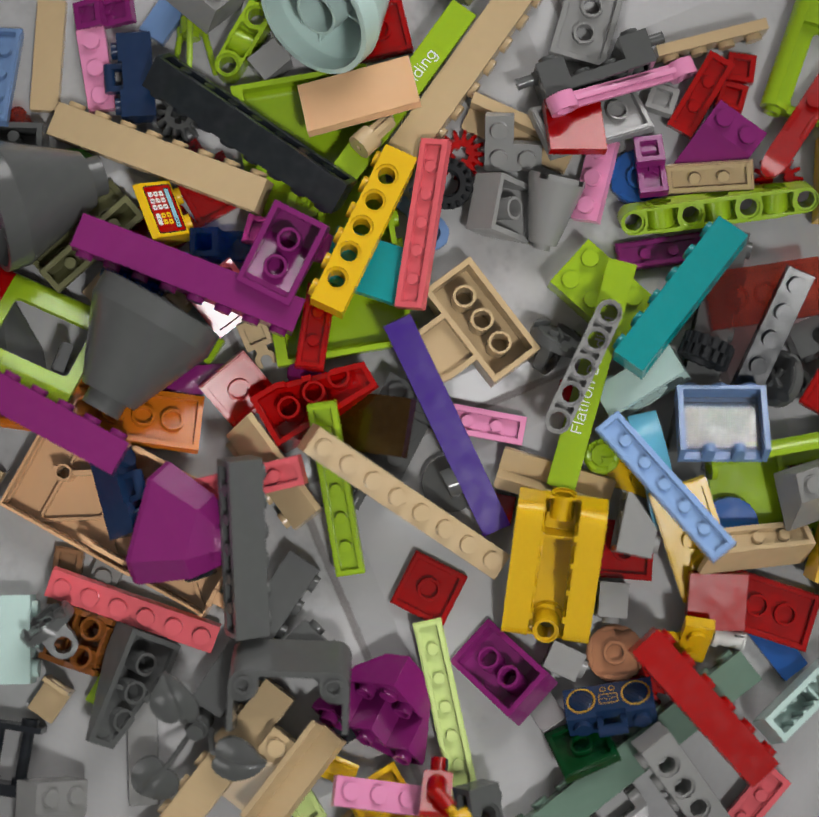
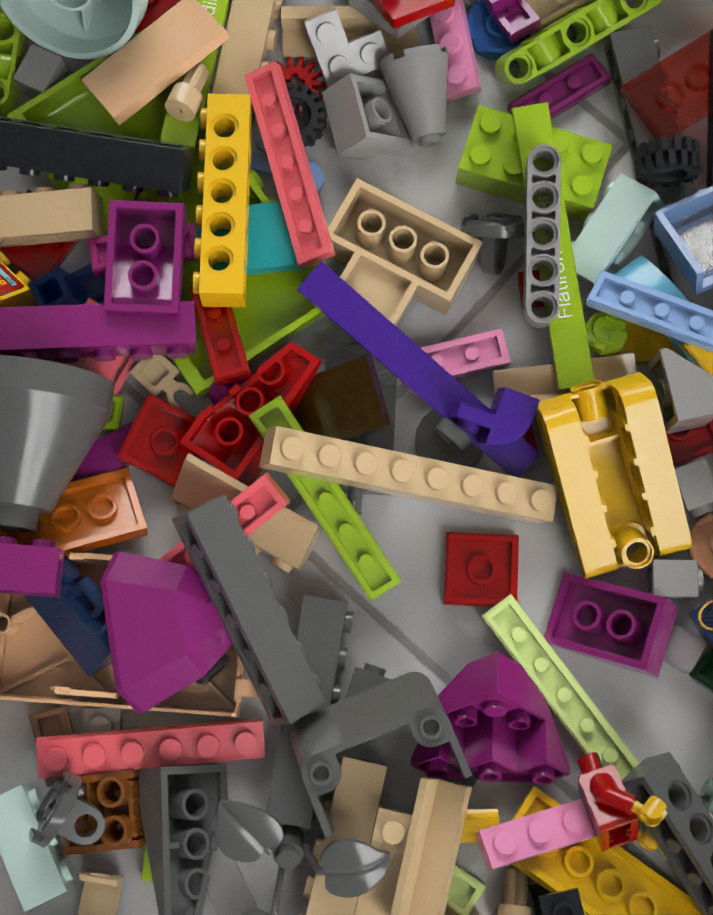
camera: 20 degrees left, 5 degrees down
(491, 493) = (506, 420): none -> dark purple brick
(679, 297) = (610, 118): teal brick -> none

